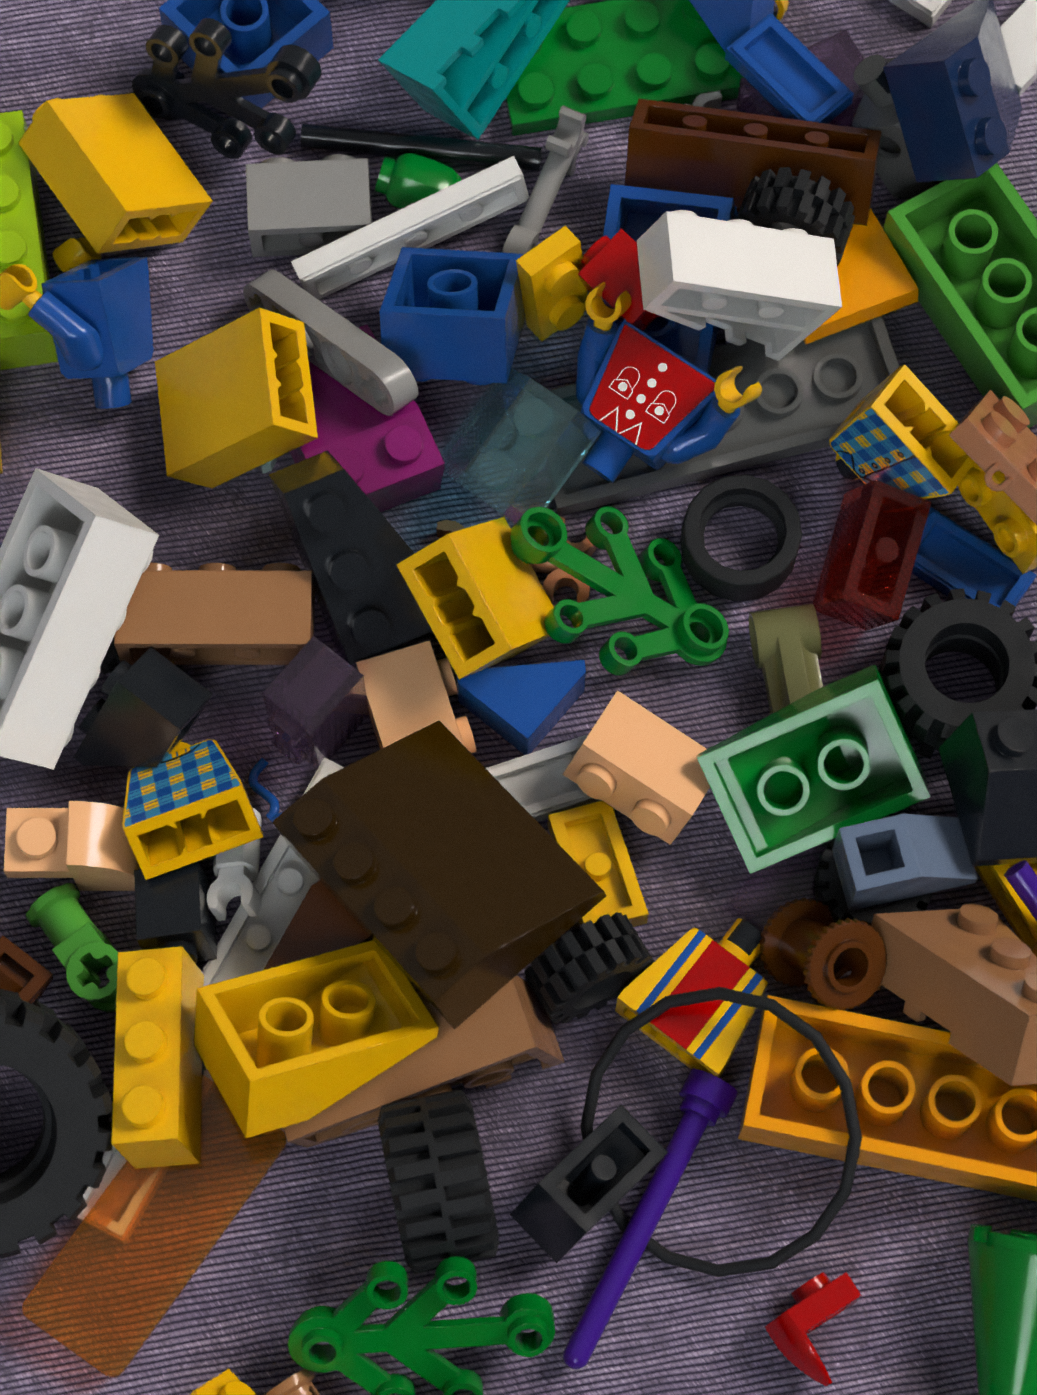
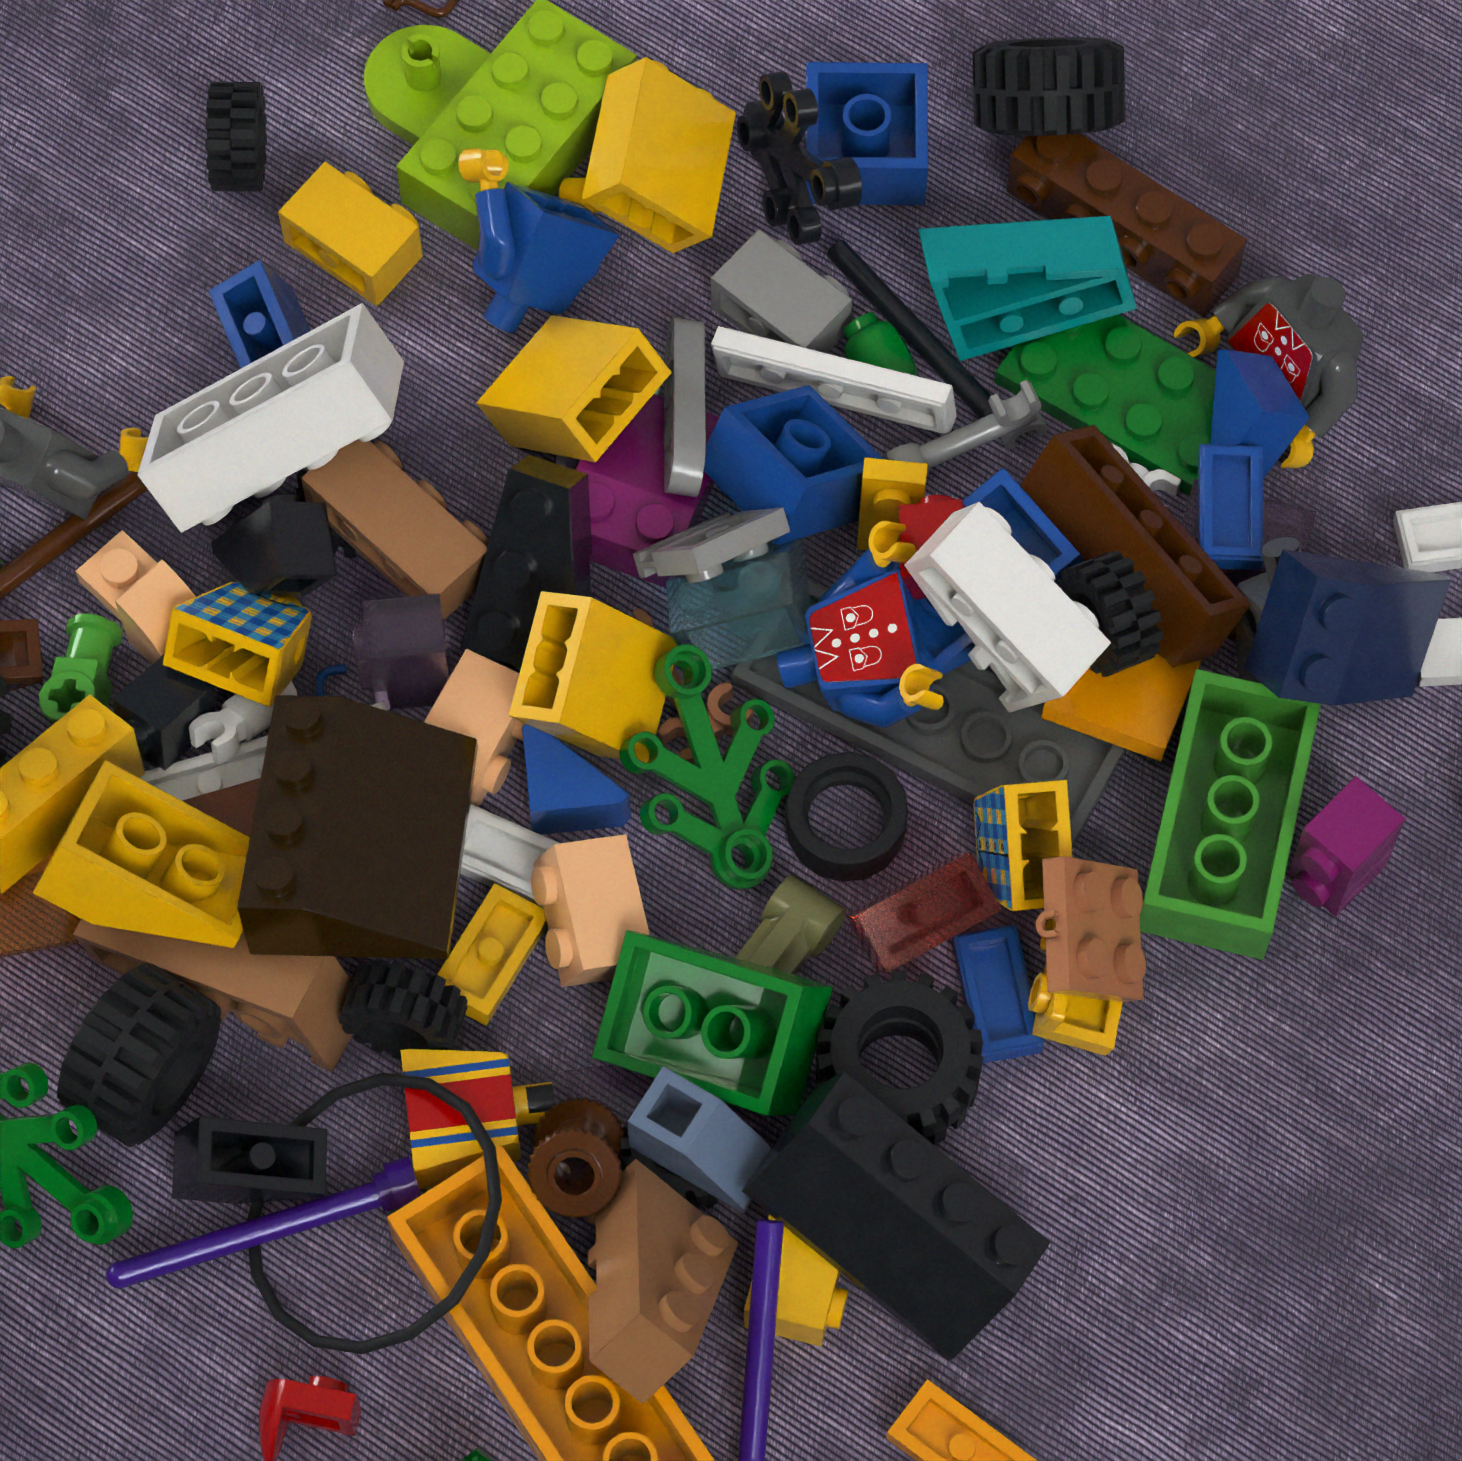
camera: 45 degrees right, 5 degrees down
(468, 422) = (705, 546): none -> light grey plate

